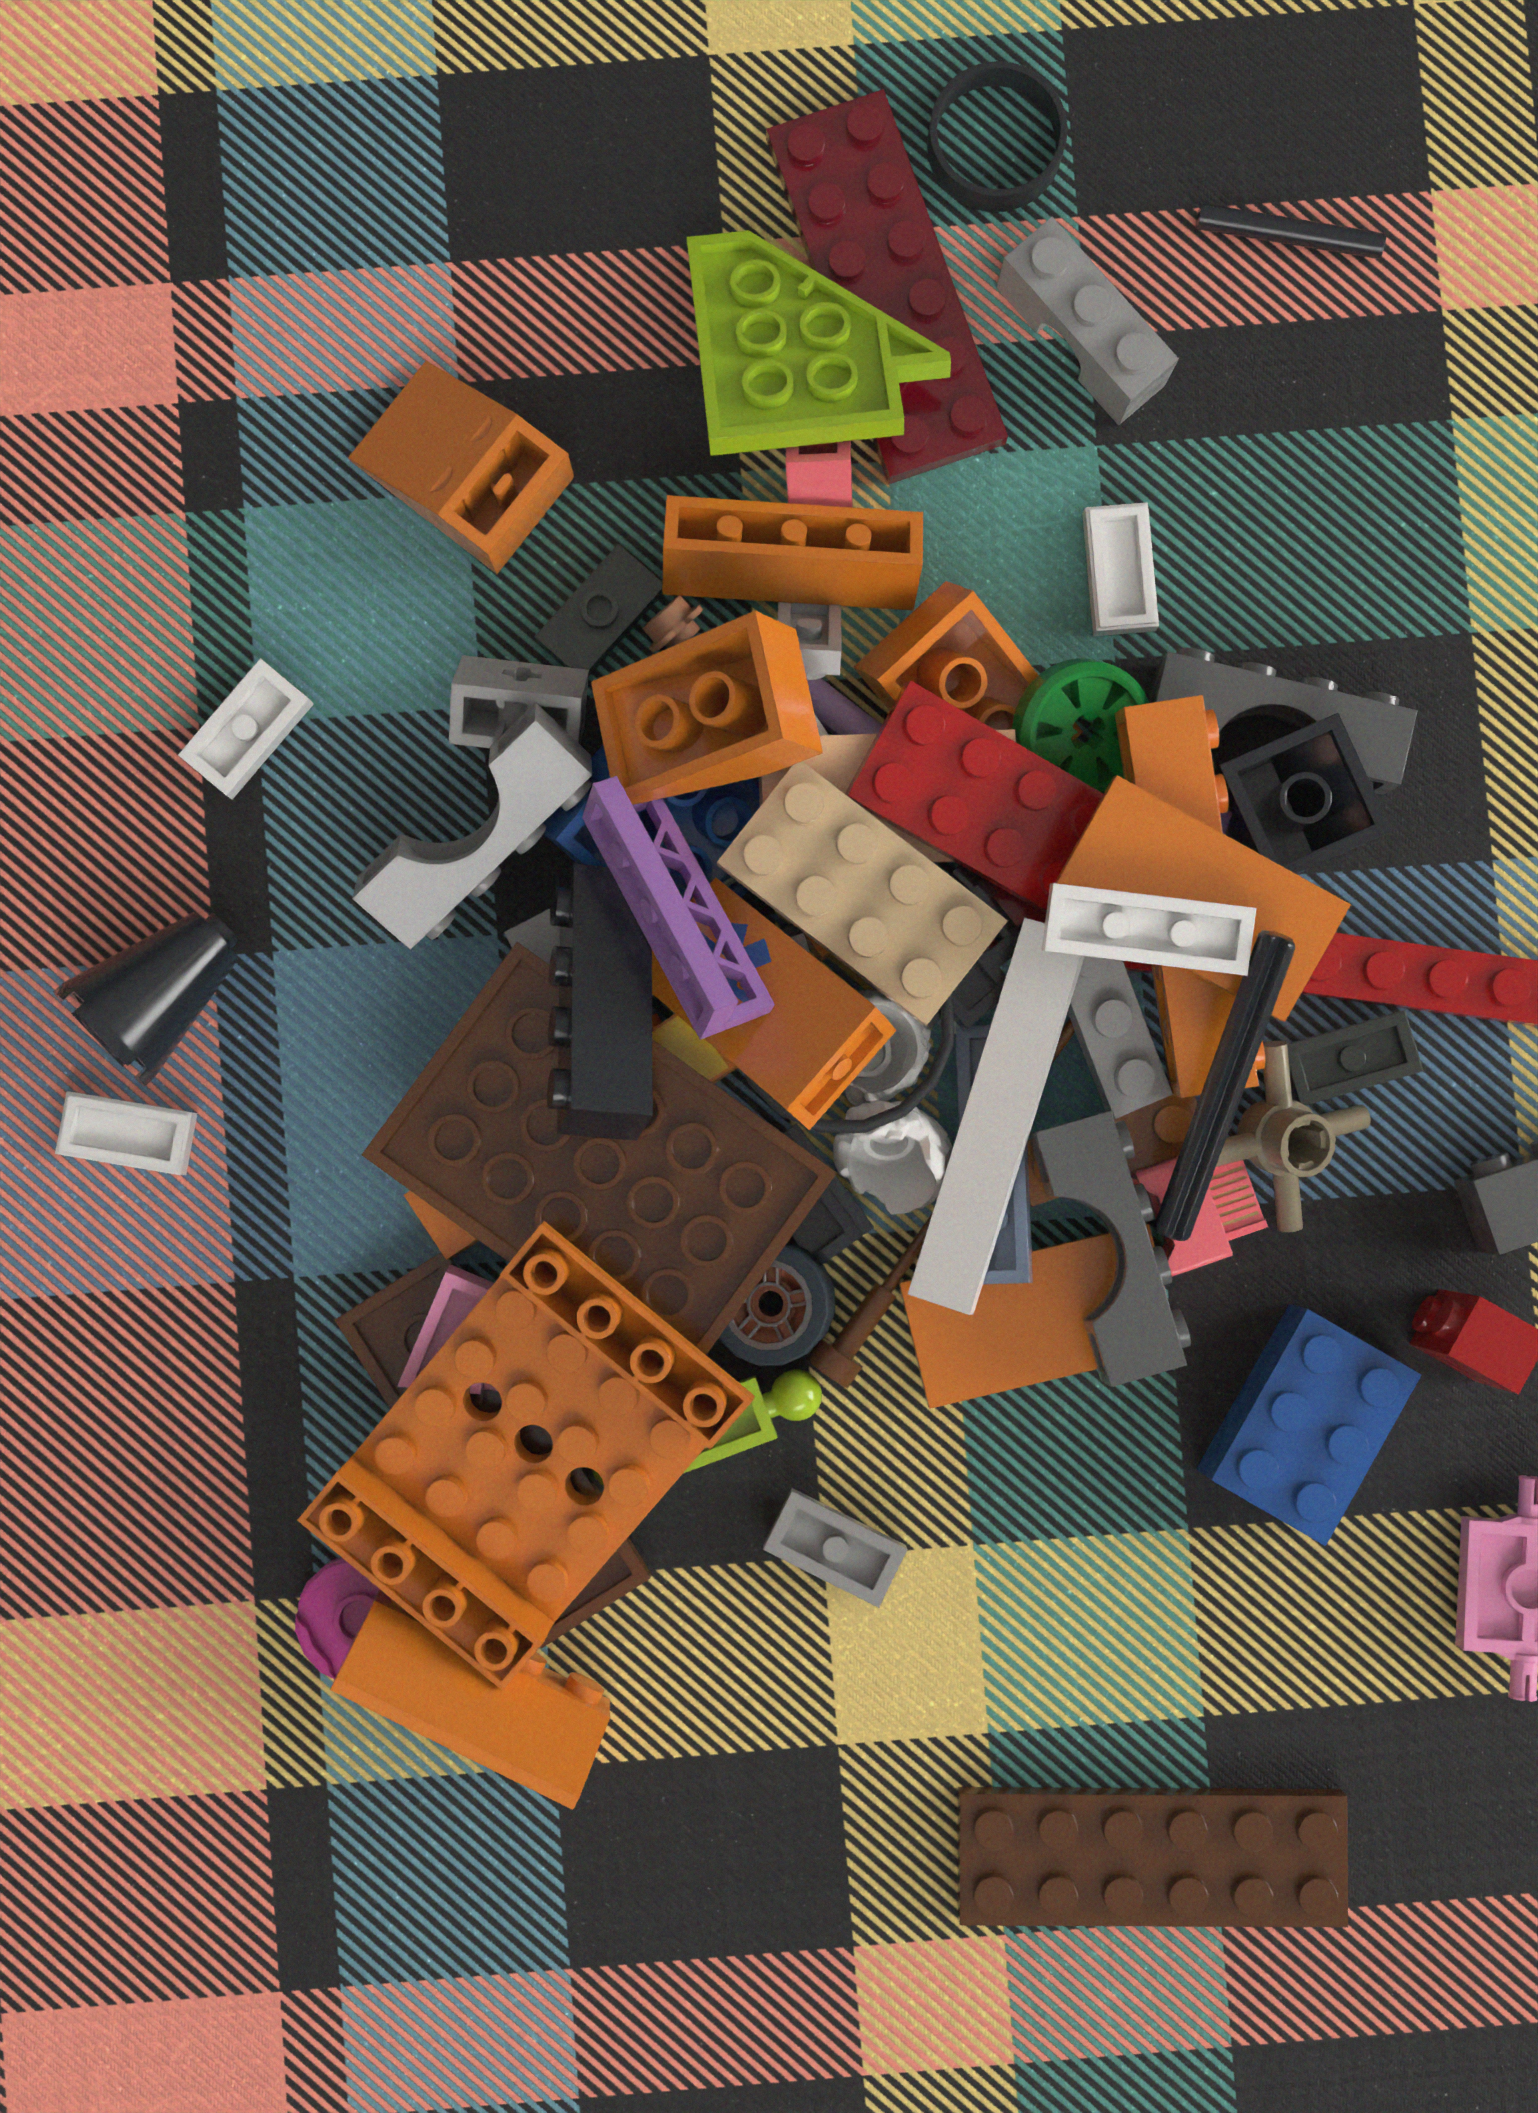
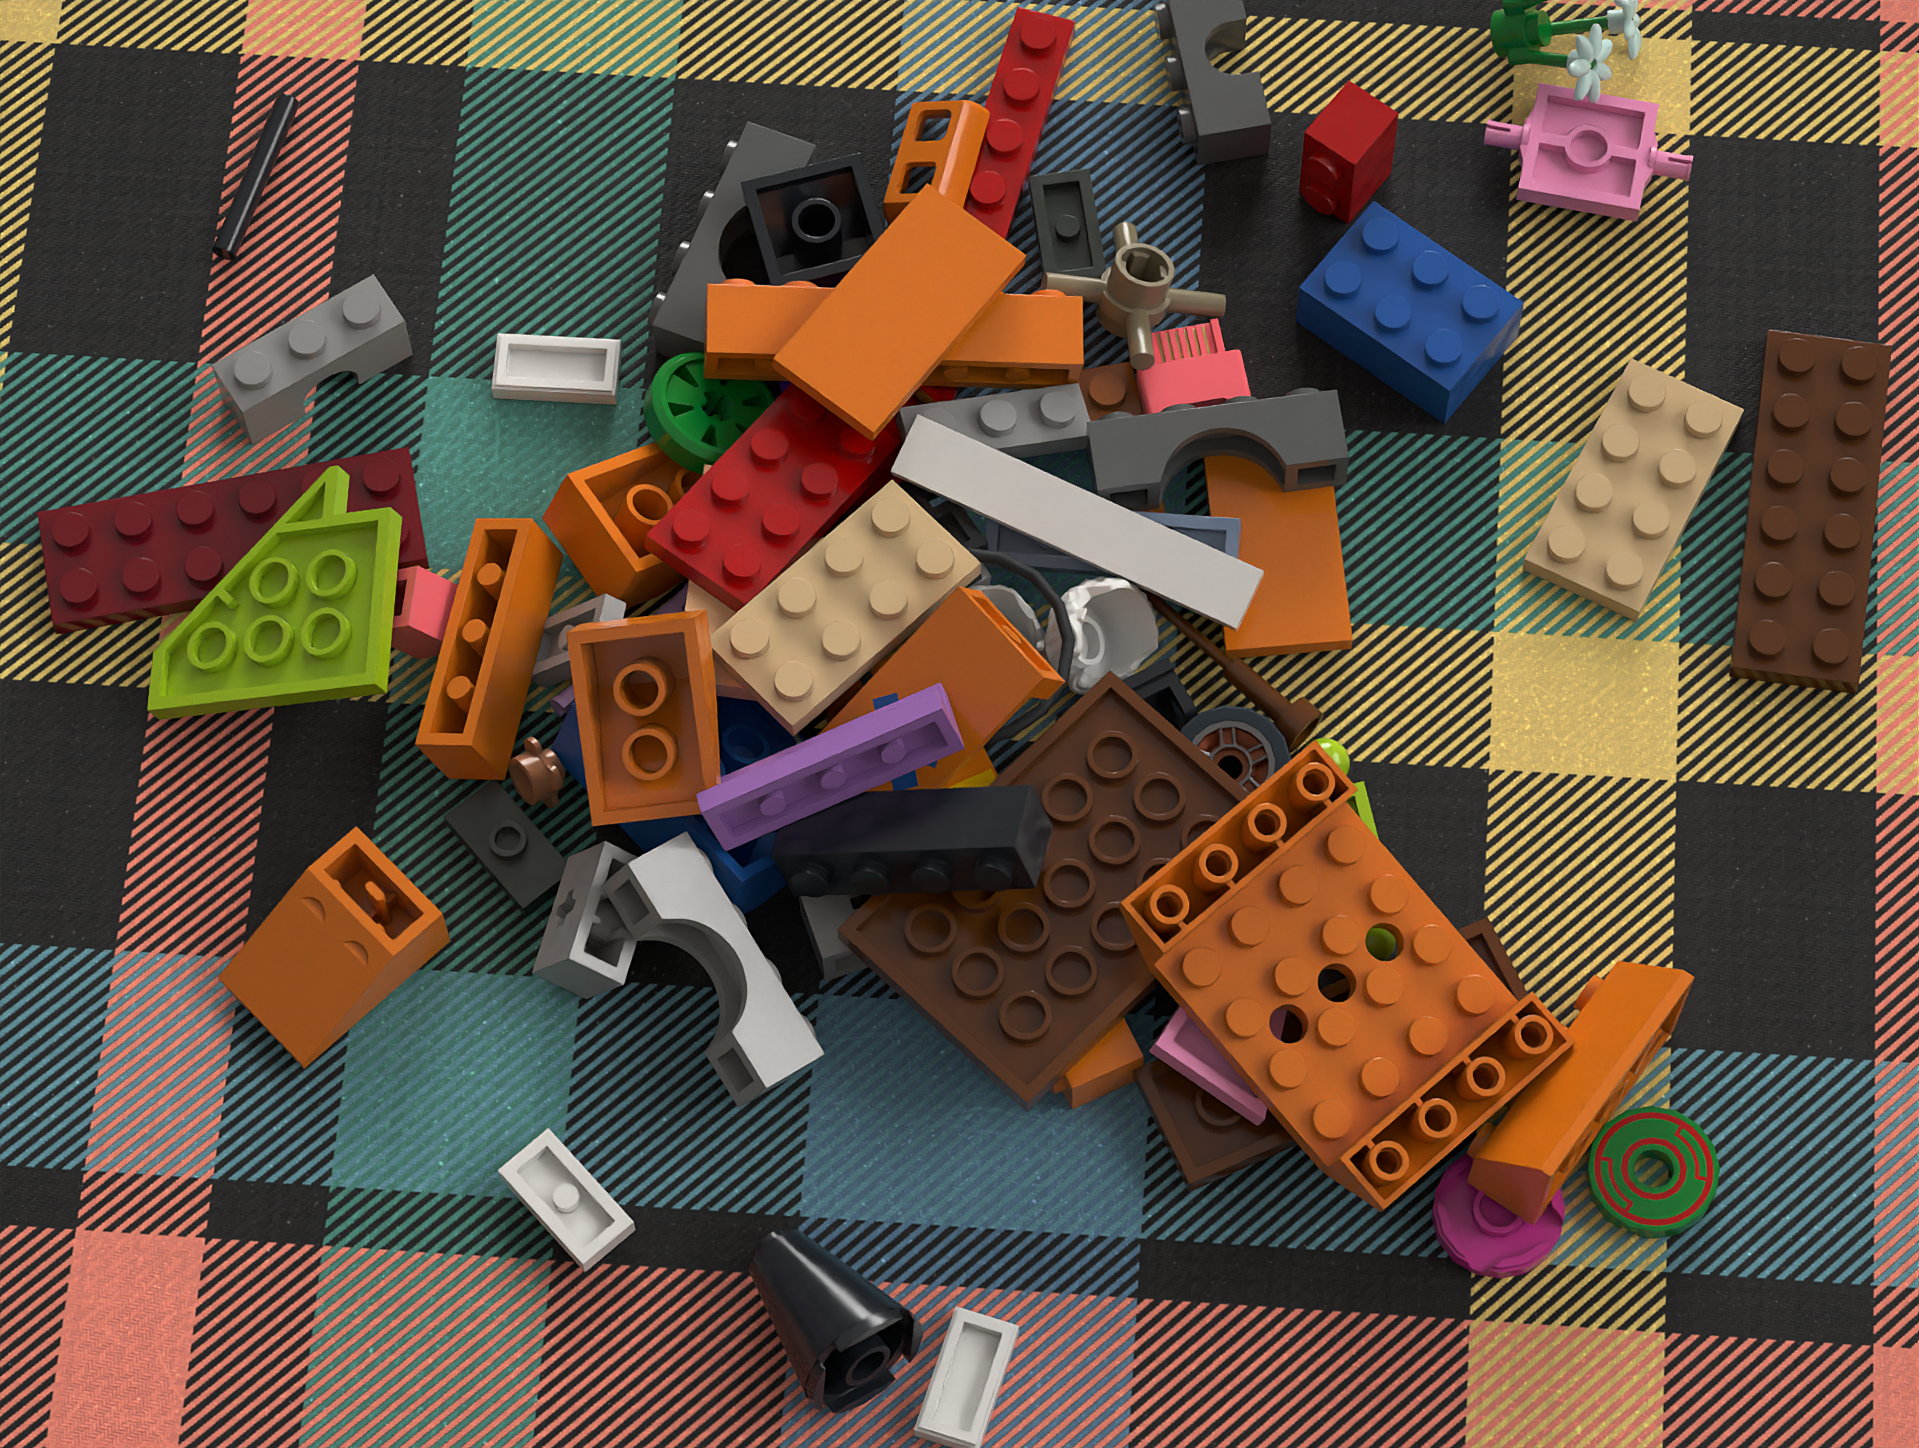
camera: 75 degrees left, 20 degrees down
(397, 1797) = (1661, 1136): none -> green tile
(835, 1547) = (1478, 748): light grey plate -> none
(1003, 75) = (89, 365): black tyre -> none
(1148, 929) = (922, 349): white plate -> none
(1148, 1673) = (1633, 489): none -> tan plate
(1225, 1084) = (1079, 317): black axle -> none
(1412, 927) = (952, 155): none -> orange piece

